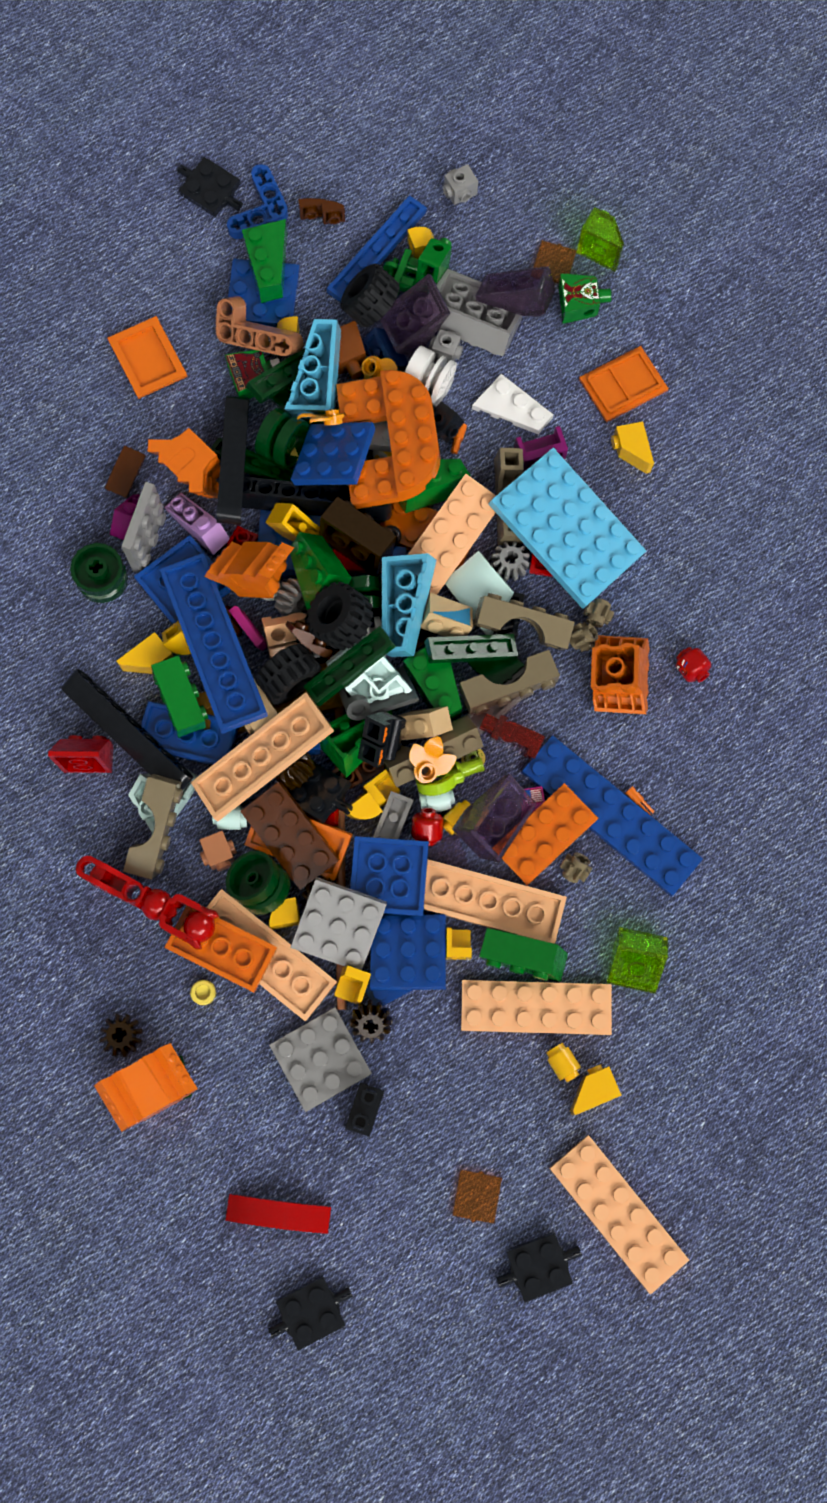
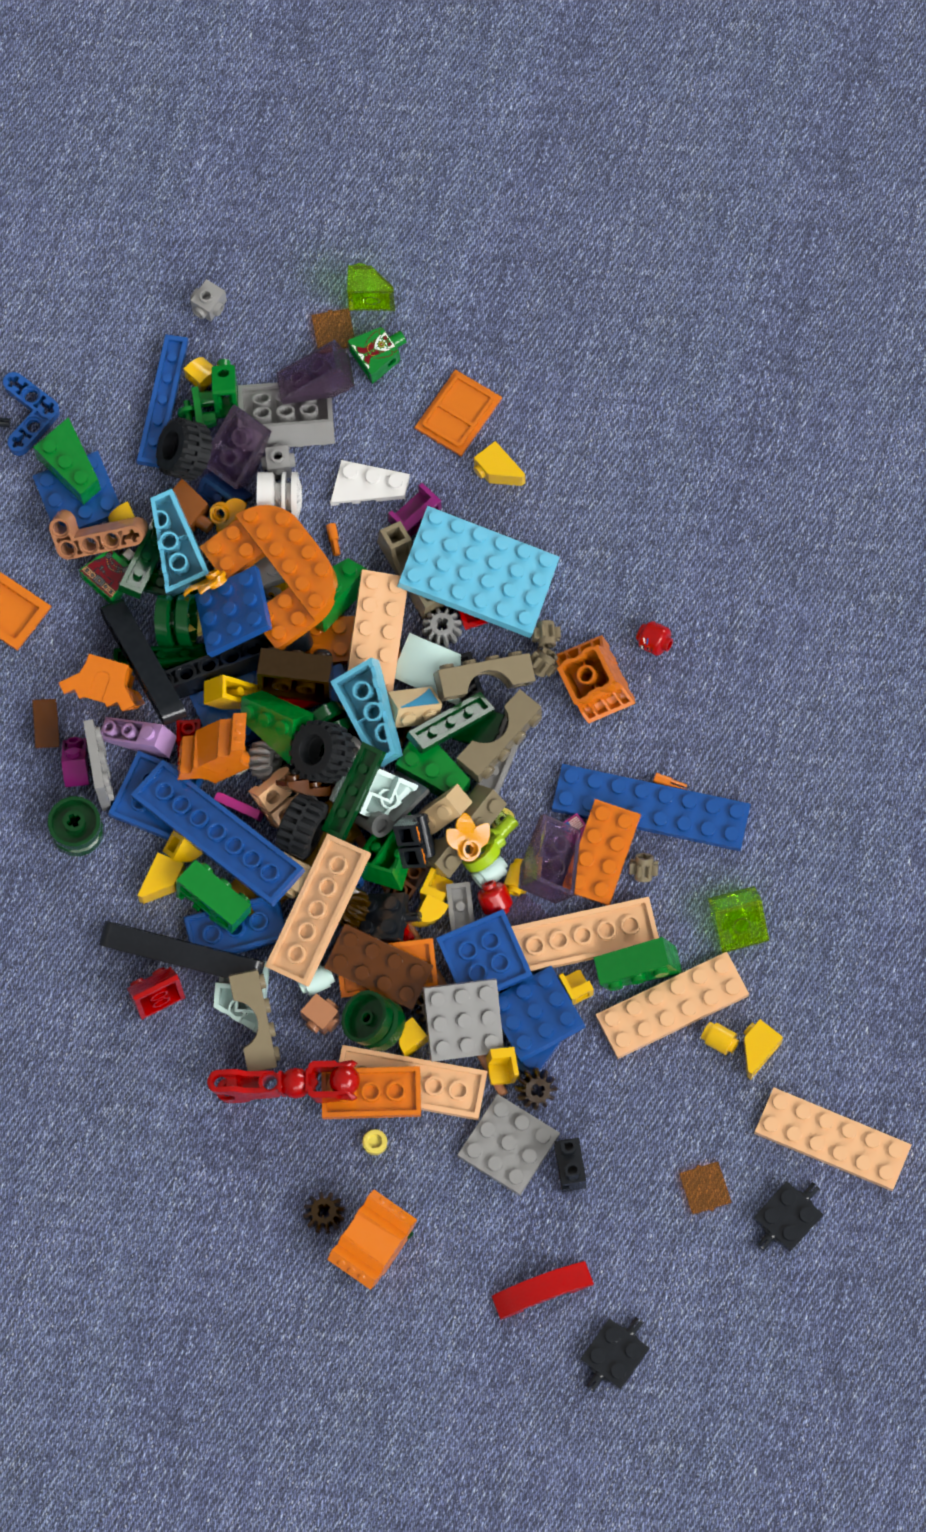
camera: 20 degrees left, 5 degrees down
(330, 211) = (98, 386): reddish brown slope -> none
(446, 422) = (318, 528): black brick -> none
(512, 733) = (527, 779): clear red hips -> none

